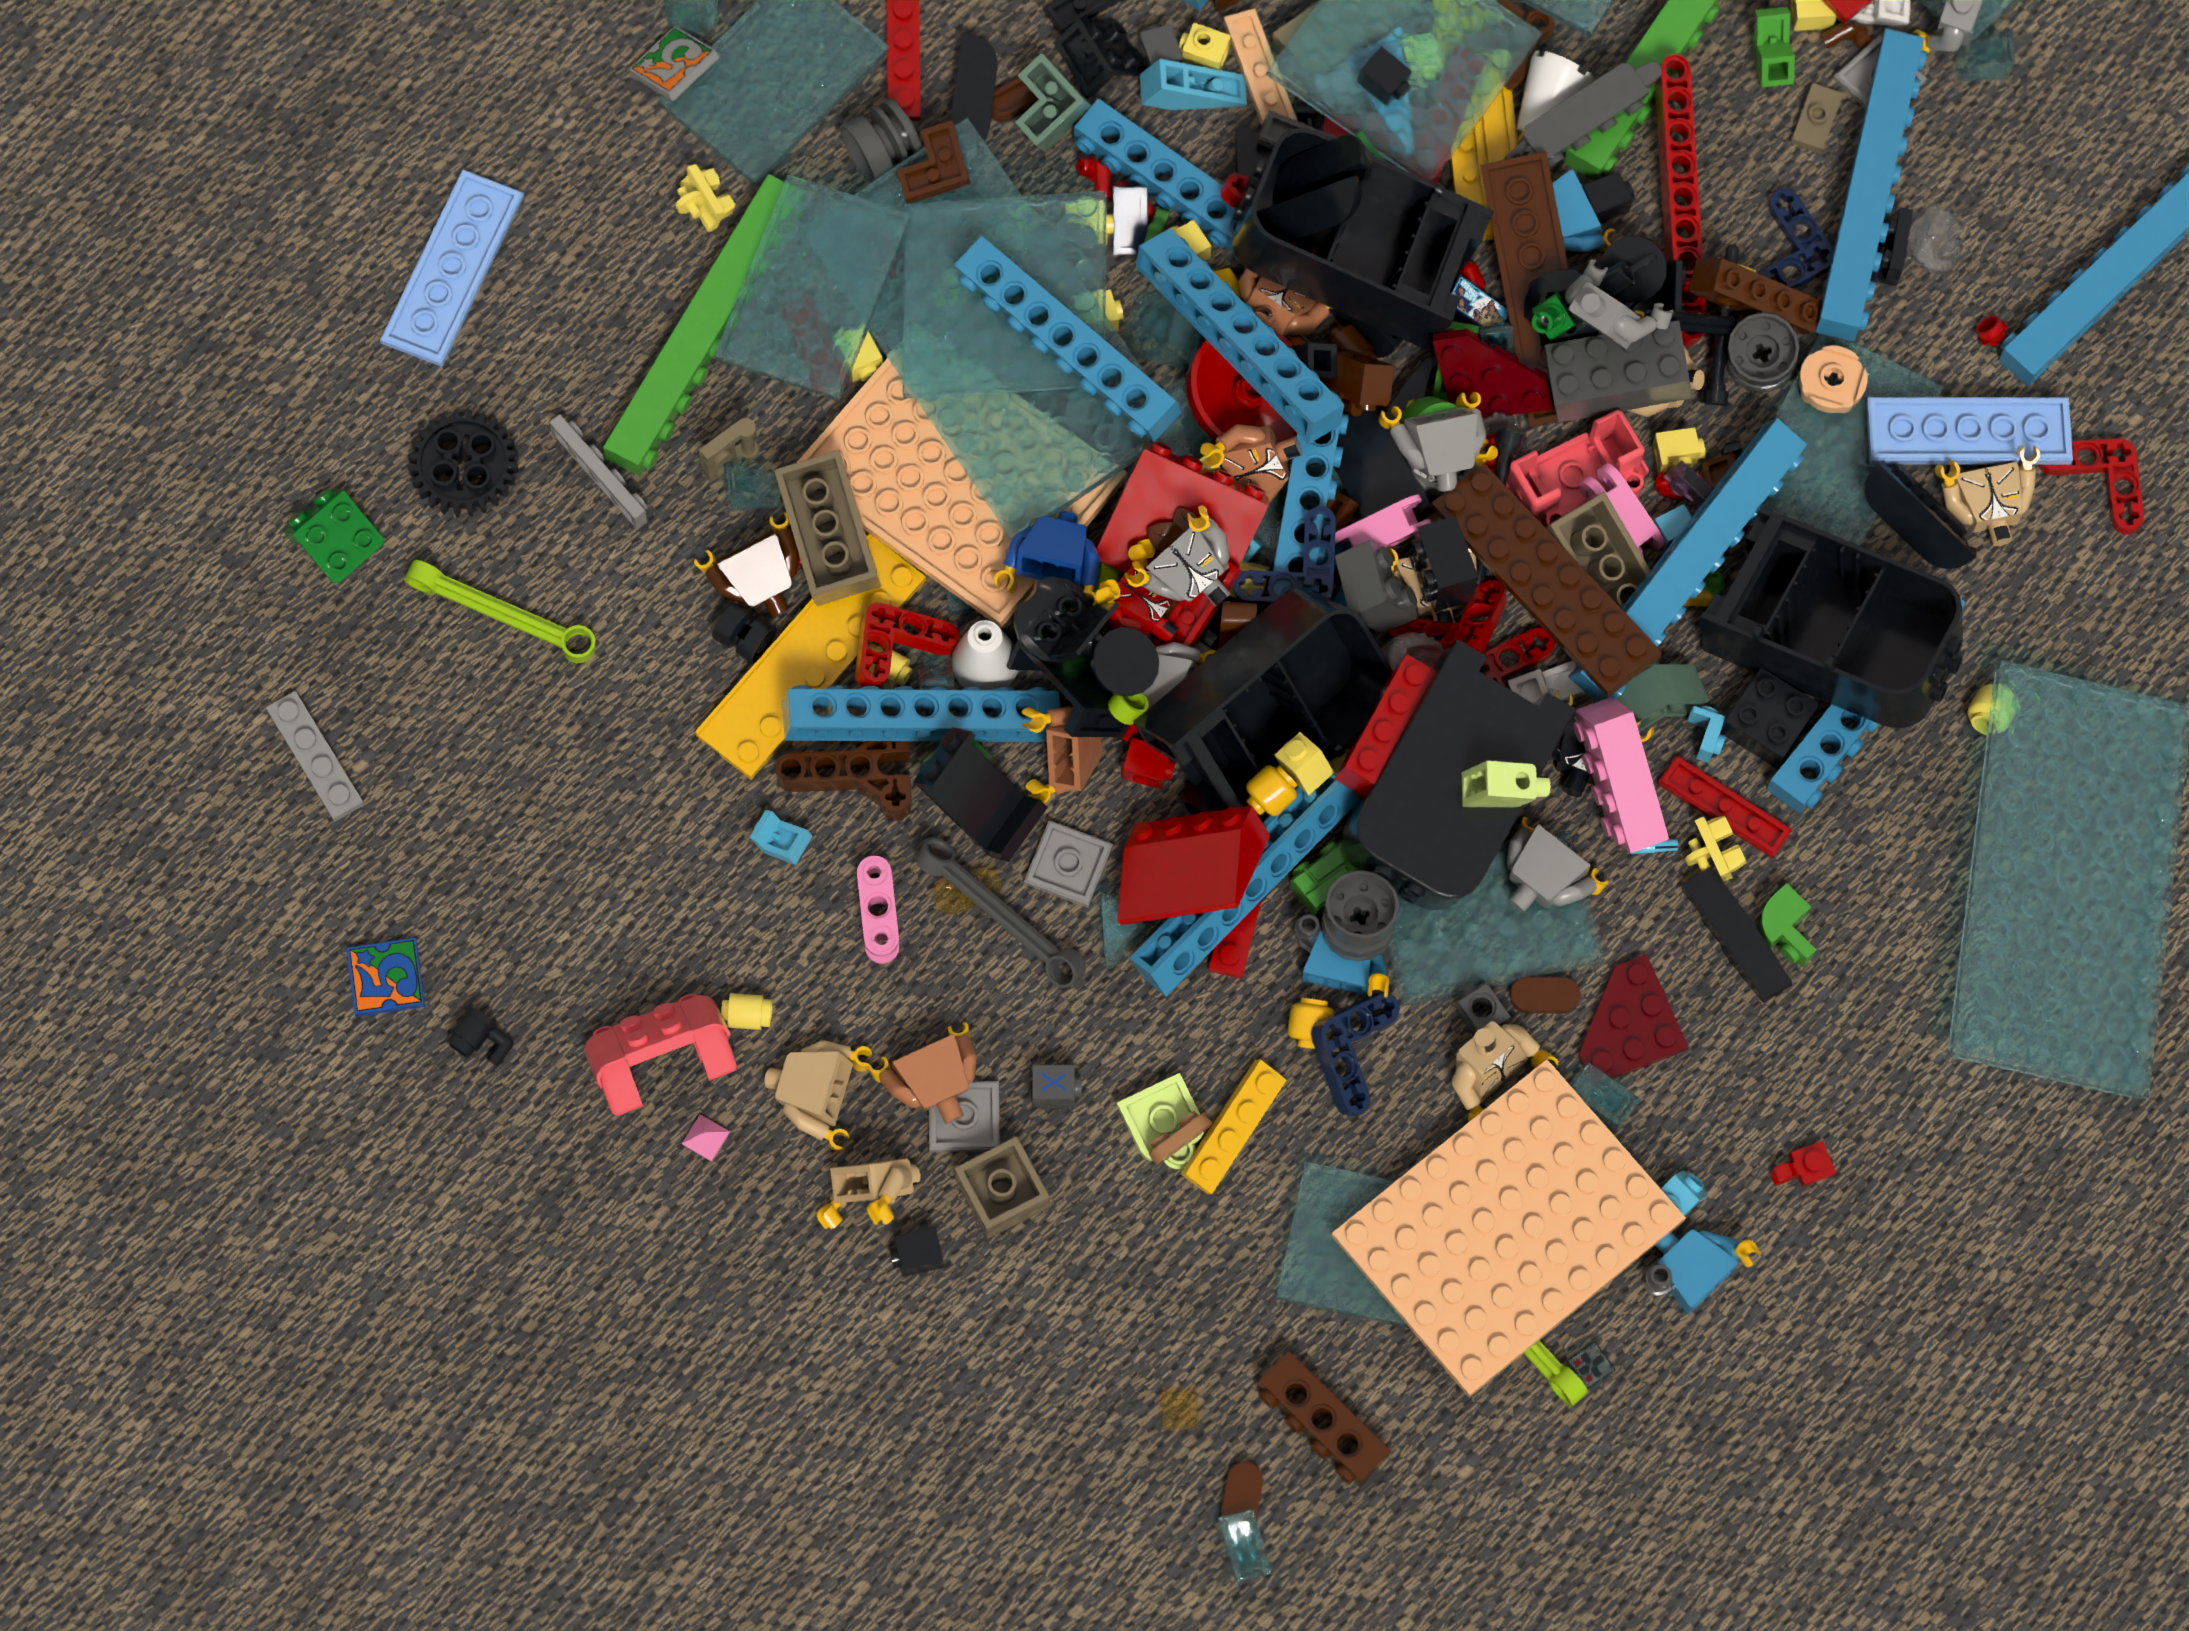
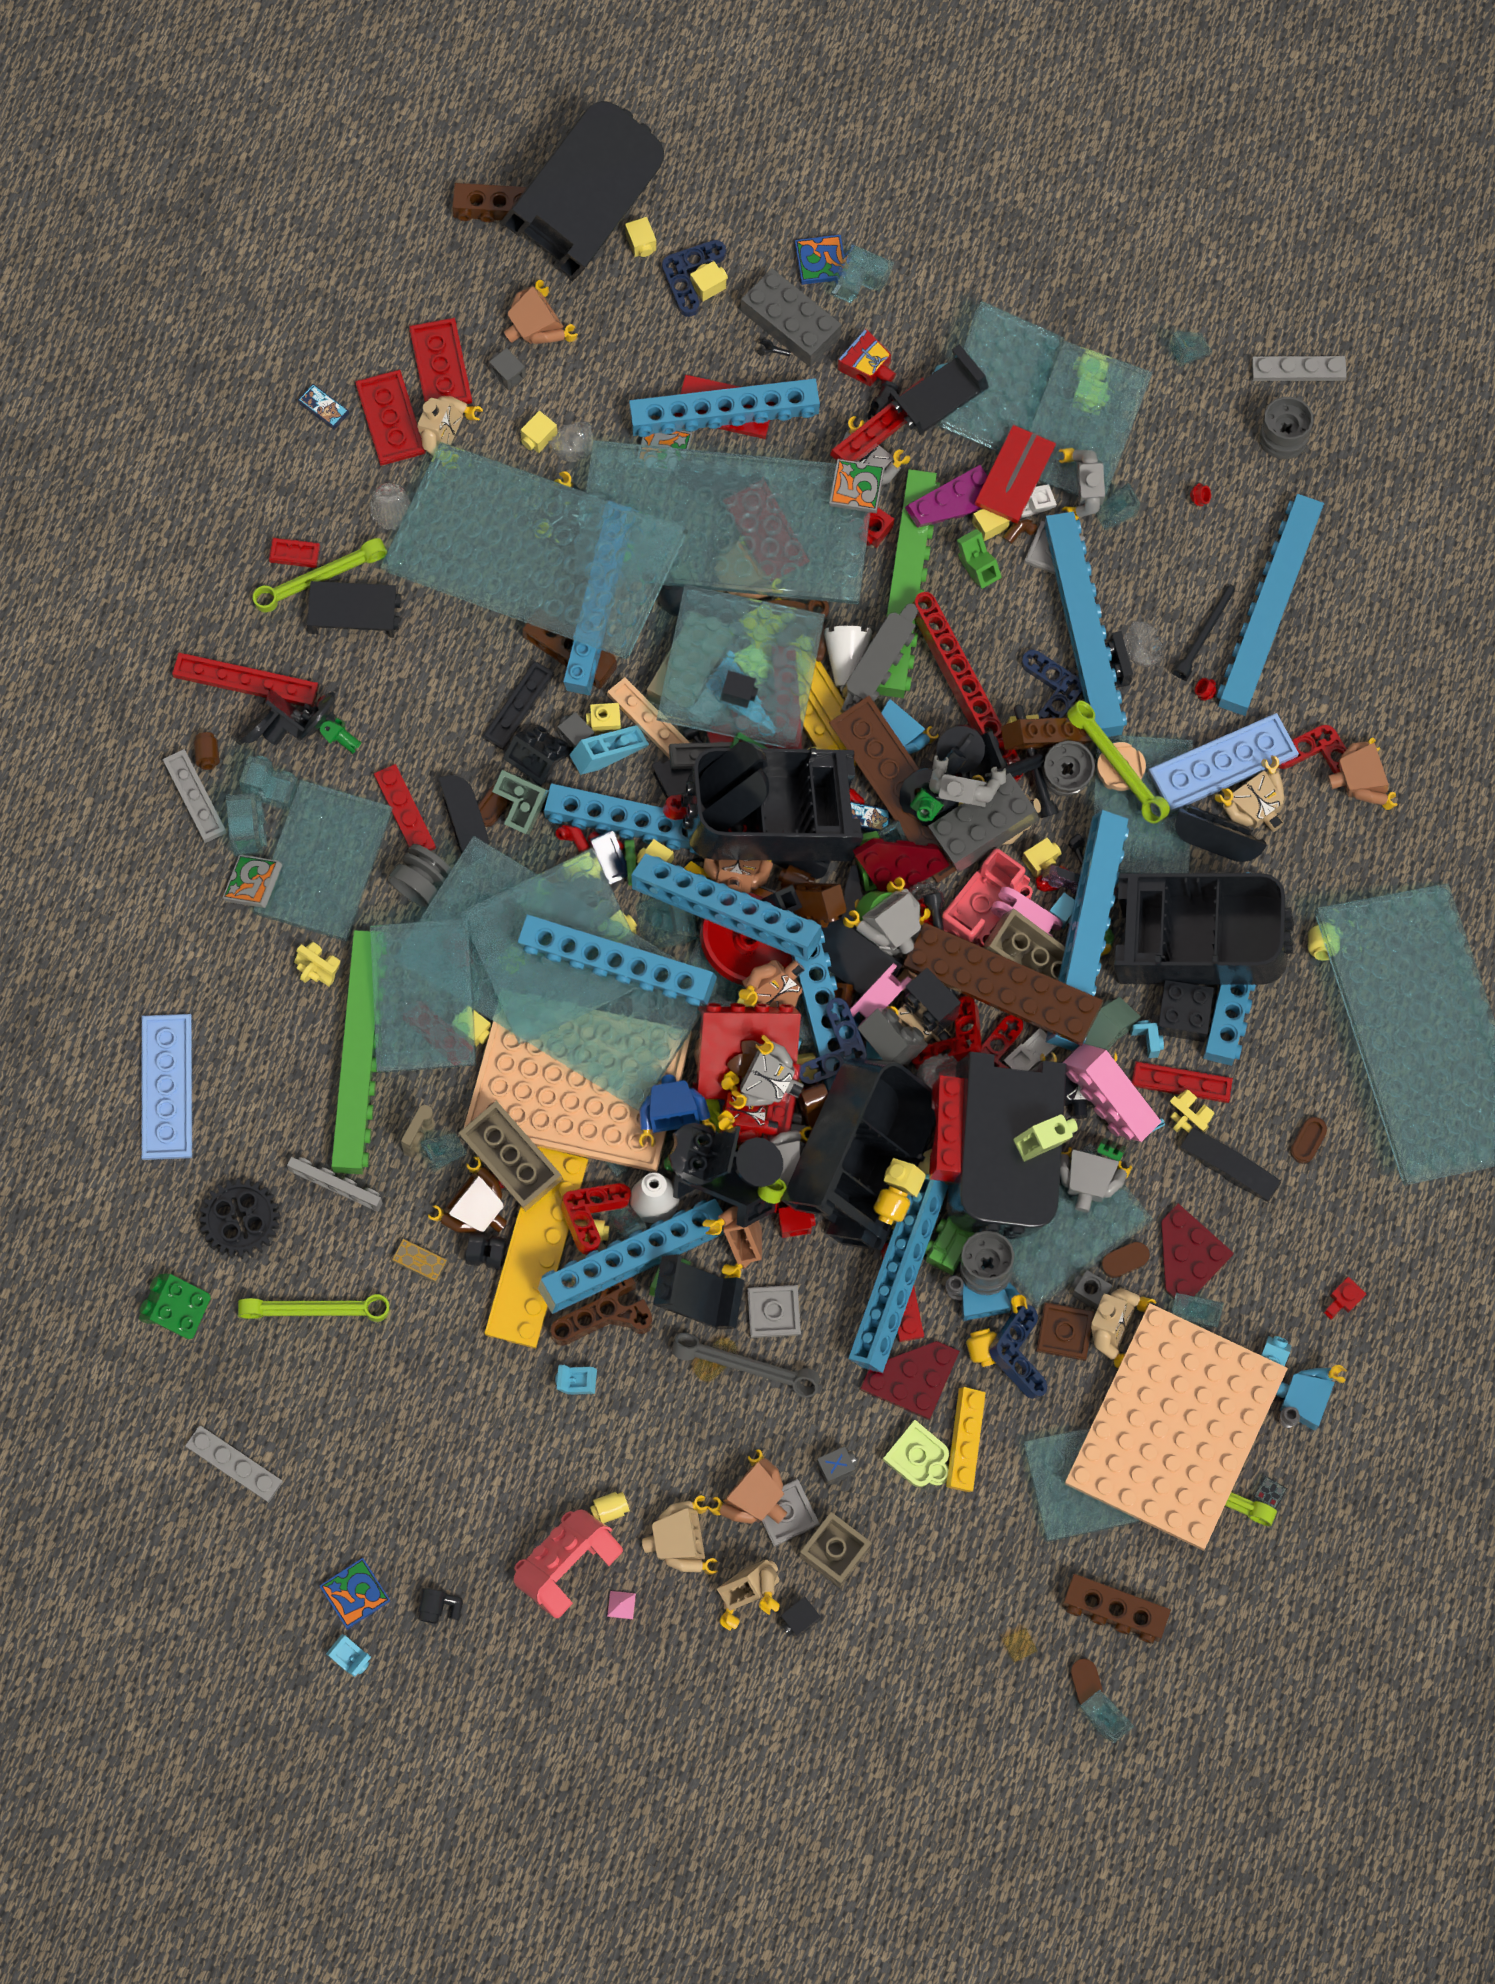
camera: 25 degrees left, 0 degrees up
(341, 1048) = (349, 1656): none -> medium azure bracket
(658, 610) = (419, 1260): none -> dark tan tile
(875, 892) = (660, 1386): bright pink piece -> none
(943, 170) = (475, 877): reddish brown plate -> none
(1117, 938) = (828, 1340): clear light blue slope -> none
(1167, 1145) = (930, 1472): medium nougat plate -> none
(1189, 864) = (860, 1279): red slope -> none
(1204, 1023) = (913, 1378): none -> dark red plate
(1423, 1049) = (1065, 1331): none -> reddish brown tile
(1584, 844) = (1111, 1150): none -> green tile
(1609, 196) = (918, 704): black brick -> none
(1716, 468) = (1074, 859): reddish brown tile -> none
(1778, 925) = (1252, 1144): bright green brick -> none
(1809, 293) = (1083, 717): none -> lime piece
(1817, 118) = (1026, 594): dark tan plate -> none
(1854, 949) = (1308, 1140): none -> reddish brown tile
(1978, 291) = (1185, 666): none -> black piece
(2102, 87) = (1200, 494): none -> red plate
(2144, 522) = (1363, 775): none -> nougat torso

